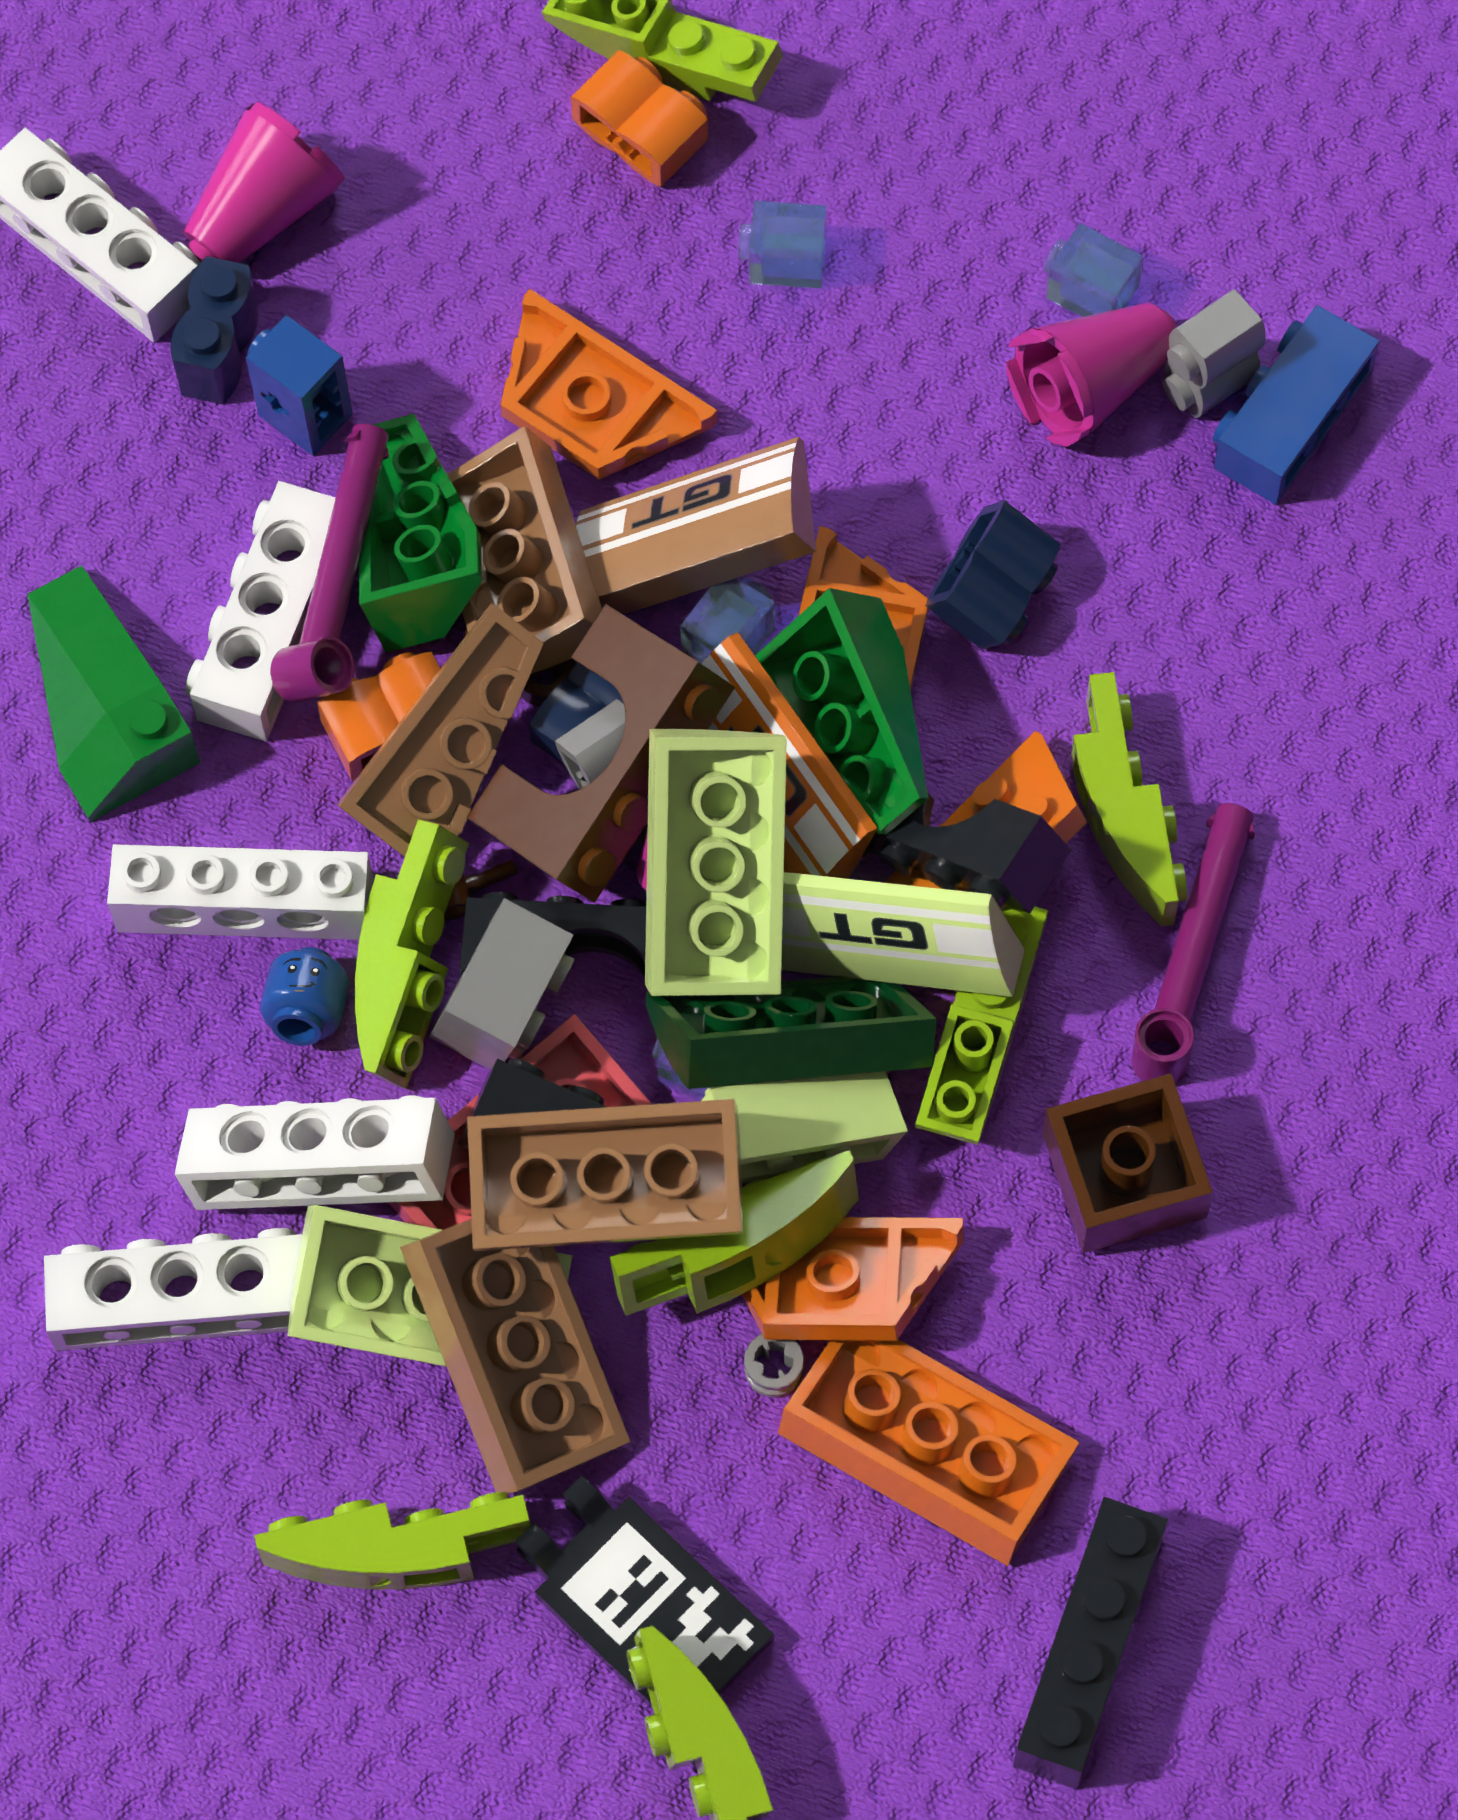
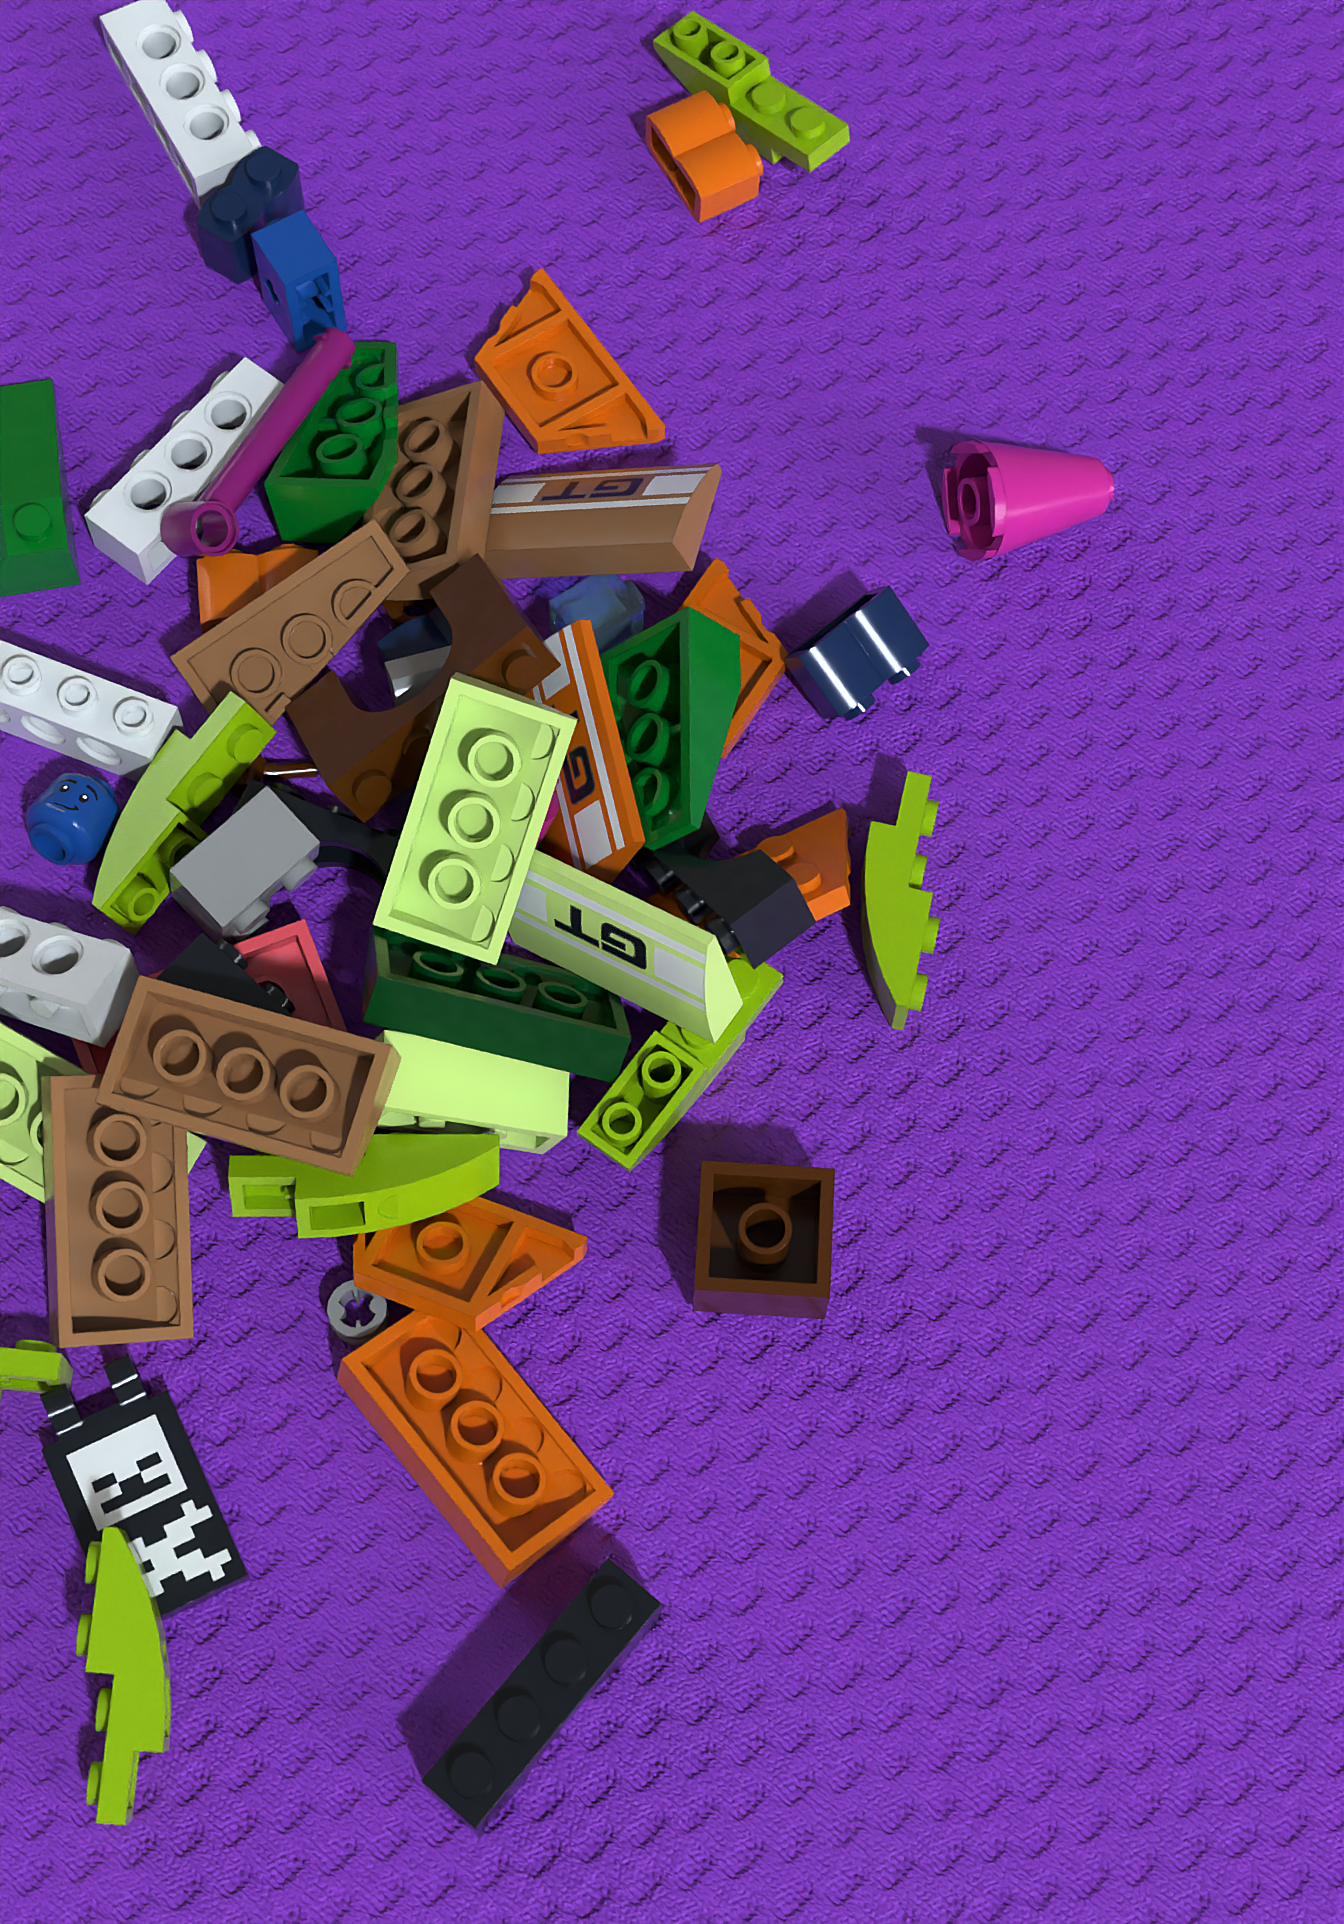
camera: 15 degrees right, 0 degrees up
(259, 187) = (340, 106): dark pink cone -> none
(784, 244) = (787, 303): clear light blue brick -> none
(1092, 273) = (1055, 415): clear light blue brick -> none
(1193, 947) = (909, 1059): magenta piece -> none
(1213, 354) = (1137, 520): light grey brick -> none
(1294, 403) = (1198, 592): blue brick -> none

